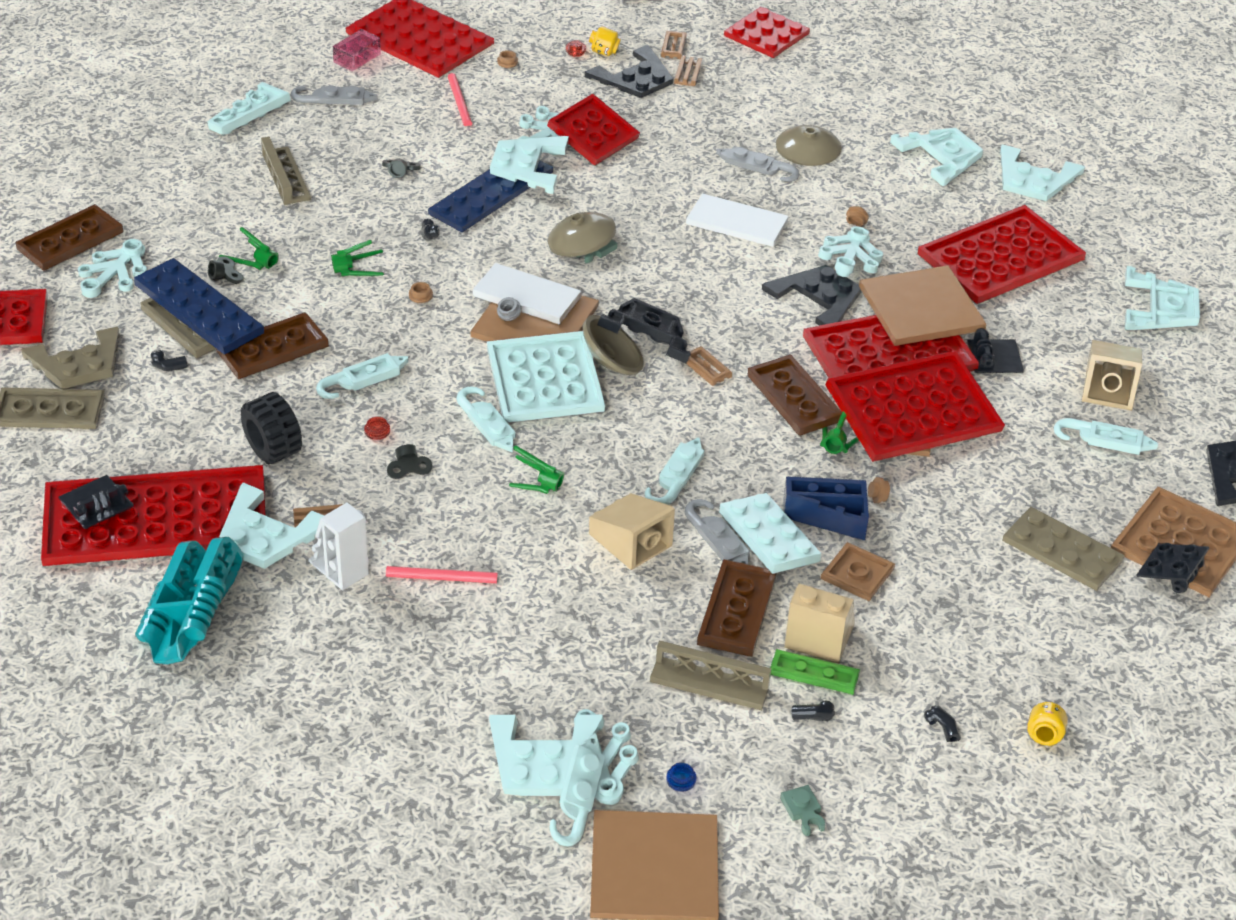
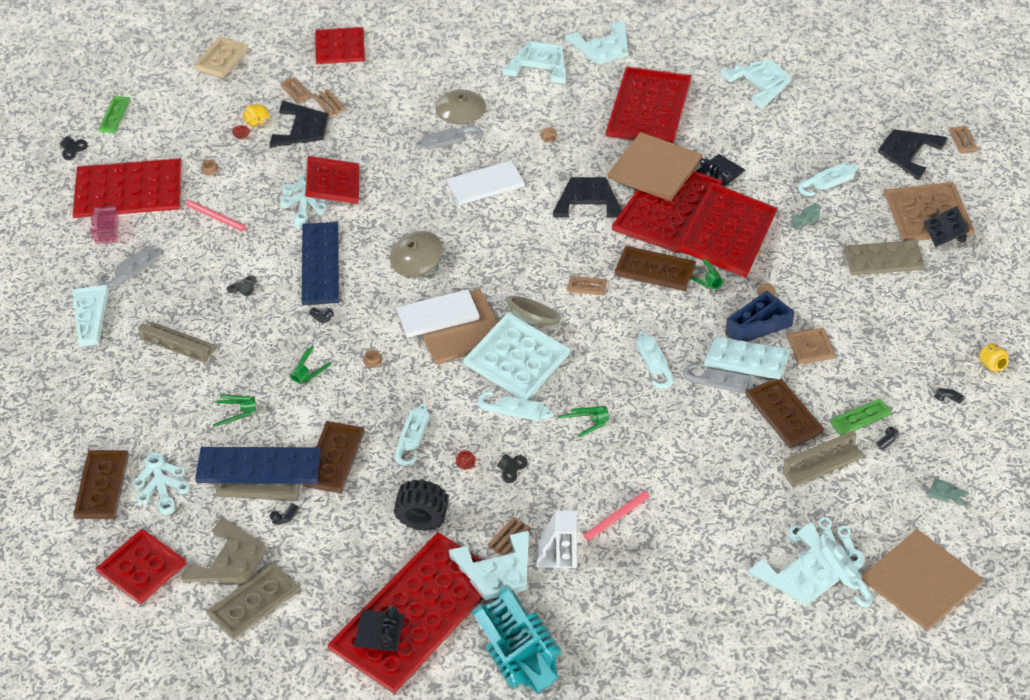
camera: 40 degrees left, 5 degrees up
(224, 268) = (231, 433): pearl dark grey piece -> none
(508, 304) = (443, 325): light grey plate -> none
(520, 159) = (318, 232): light aqua wing -> none
(634, 529) = (682, 408): tan slope -> none
(651, 321) = (526, 280): black wing -> none
(681, 777) = (875, 524): clear blue plate -> none
(819, 623) = (841, 387): tan slope -> none
(845, 264) = (565, 147): light aqua plant -> none
(1029, 452) = (809, 215): none -> sand green plate
(1112, 375) = (792, 139): tan slope -> none

